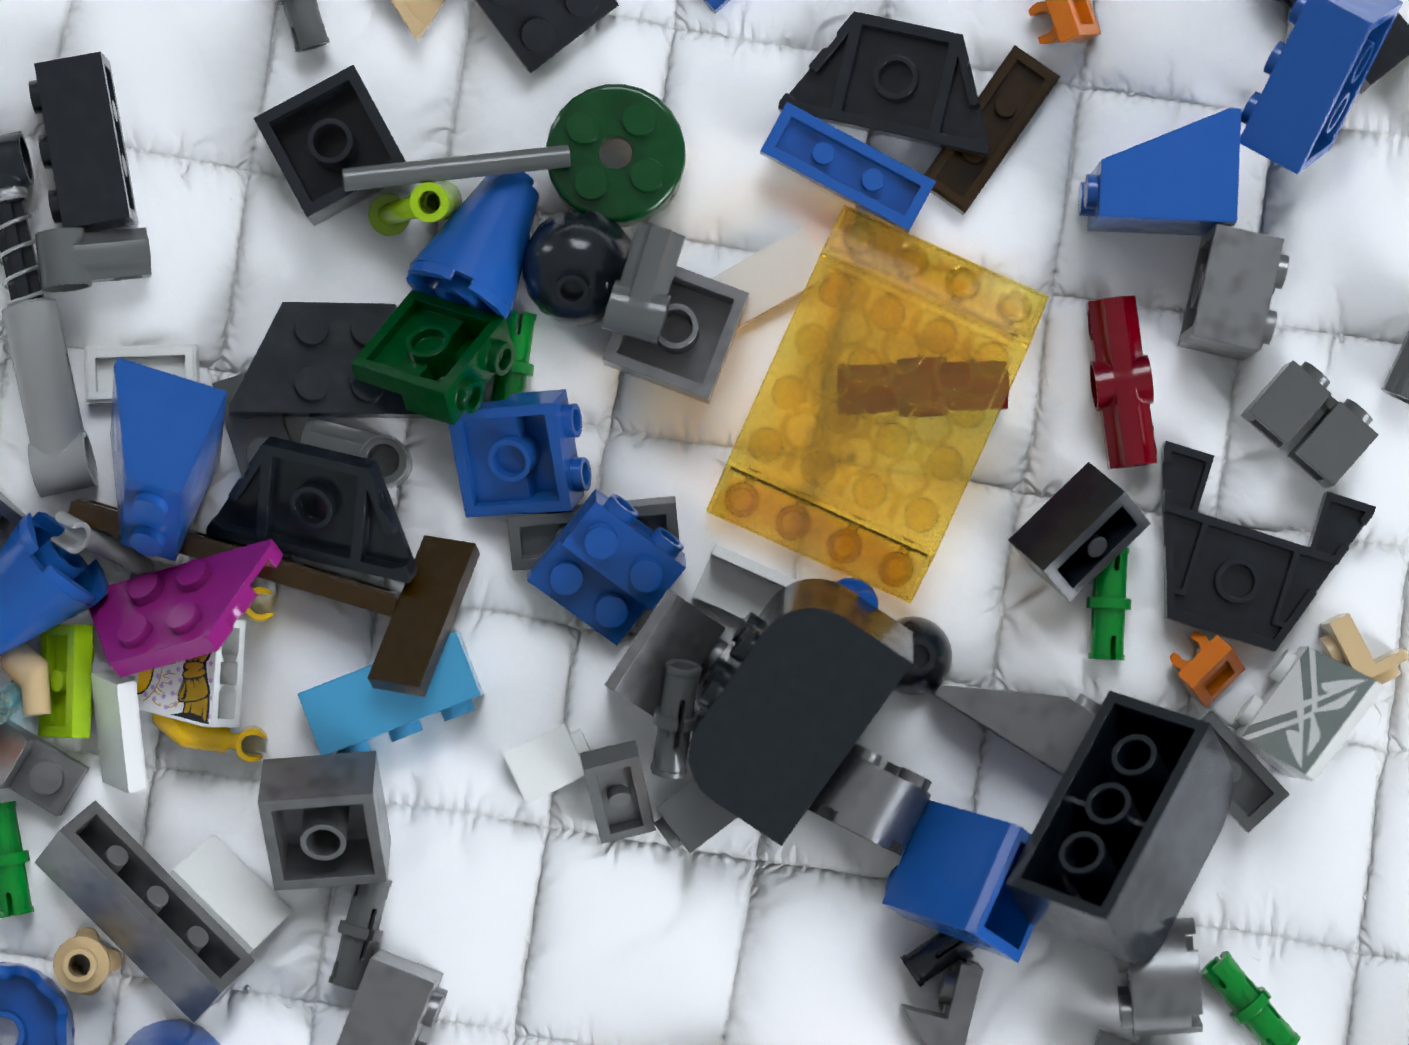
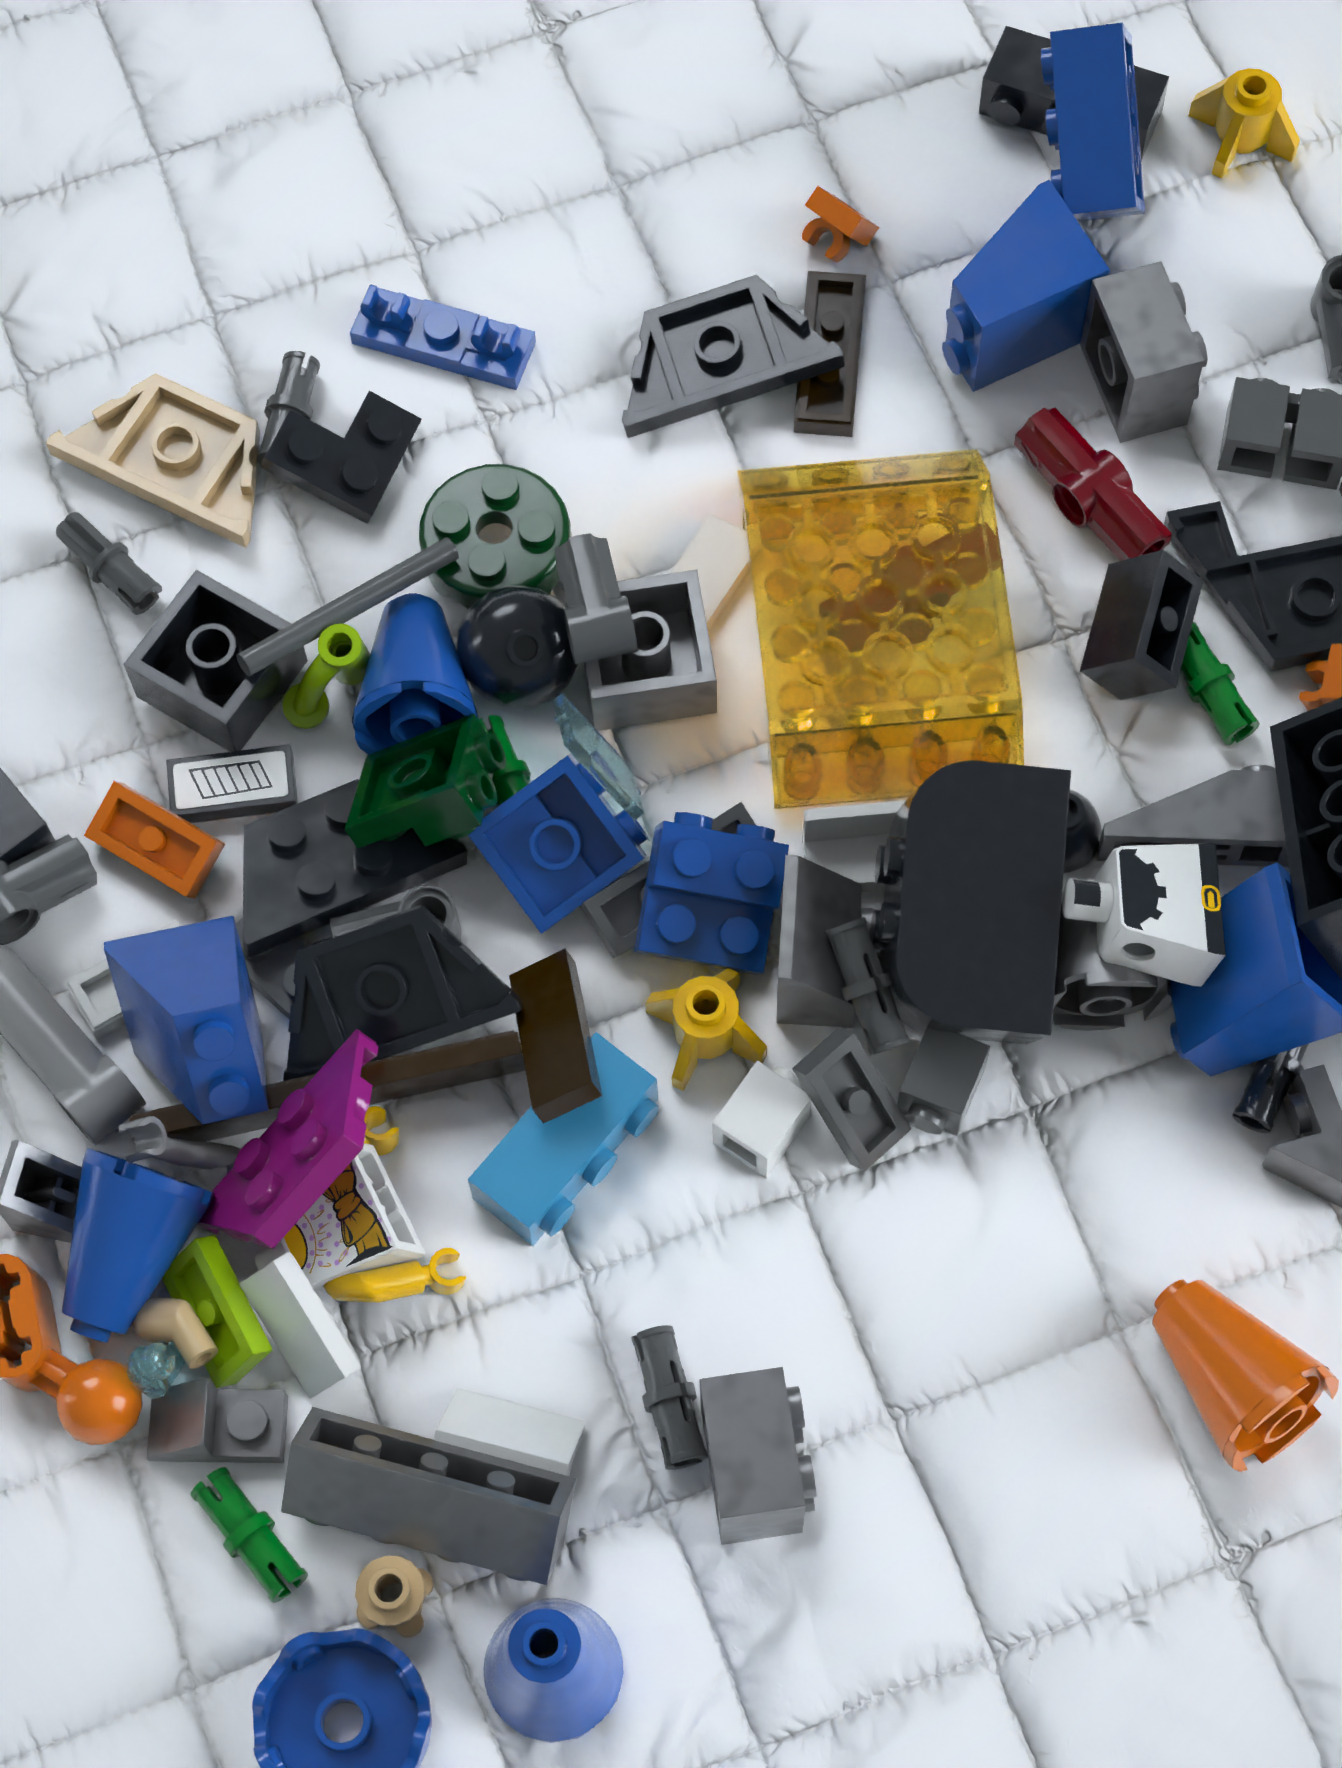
camera: 30 degrees left, 20 degrees down
(211, 268) = (154, 839): none -> orange plate
(297, 249) = (232, 783): none -> tile
(324, 820) = (569, 1287): flat silver brick -> none
(567, 662) = (705, 1022): none -> yellow brick
(582, 406) = (598, 756): none -> clear light blue piece
(847, 167) = (720, 435): blue plate -> none
(916, 797) = (1155, 910): none -> white torso

